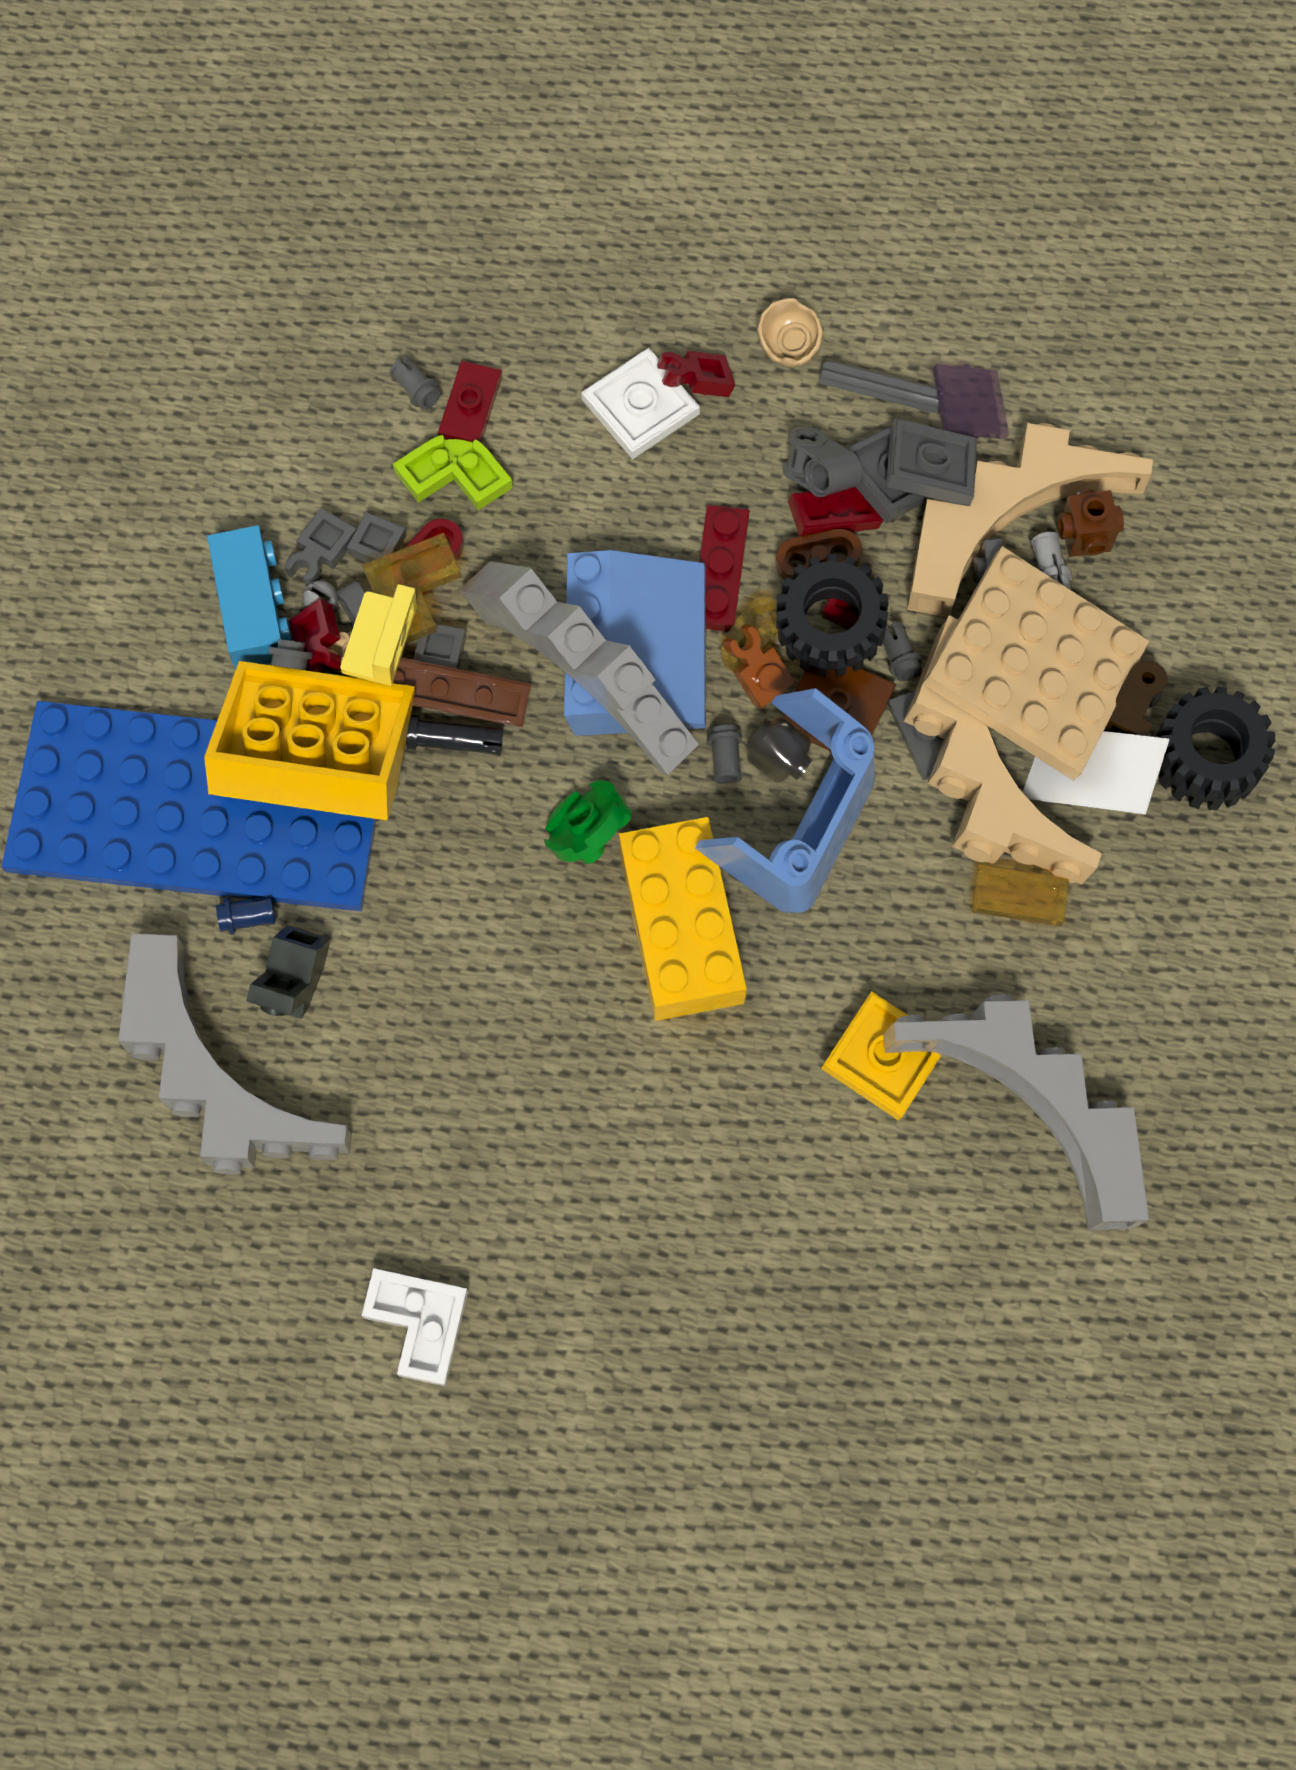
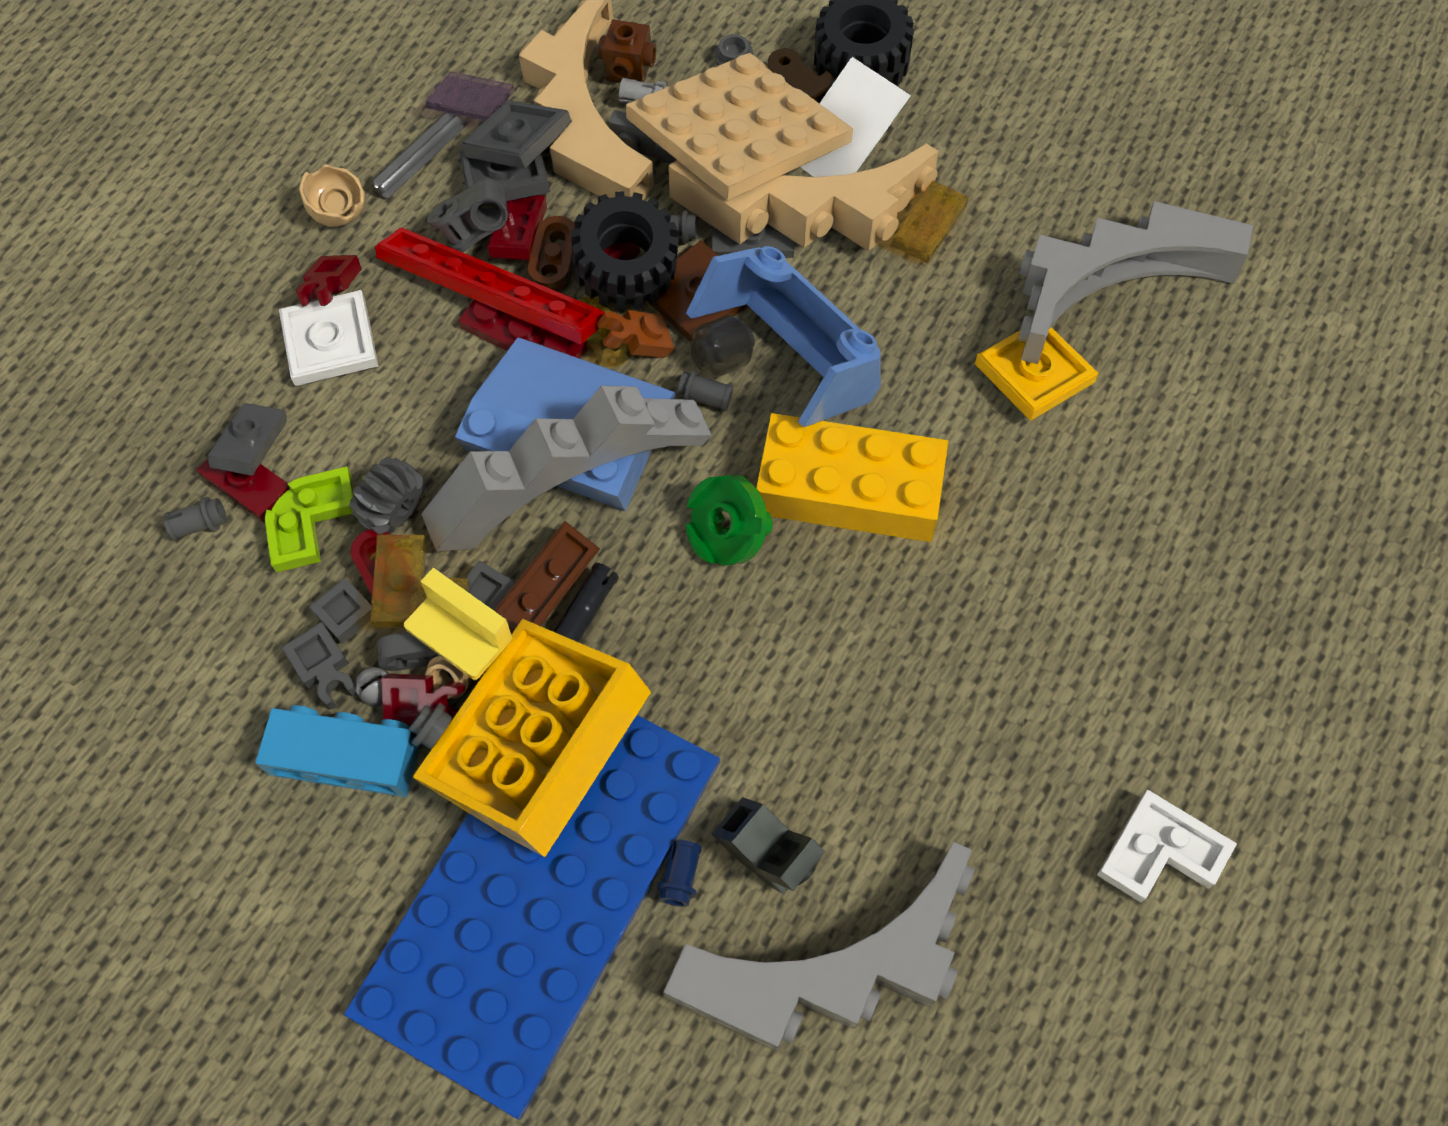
camera: 65 degrees left, 5 degrees down
(493, 525) = (387, 495): none -> dark grey gear
(505, 386) = (247, 439): none -> dark grey plate
(752, 514) = (490, 285): none -> red tile
(1150, 624) = (731, 47): none -> dark grey plate

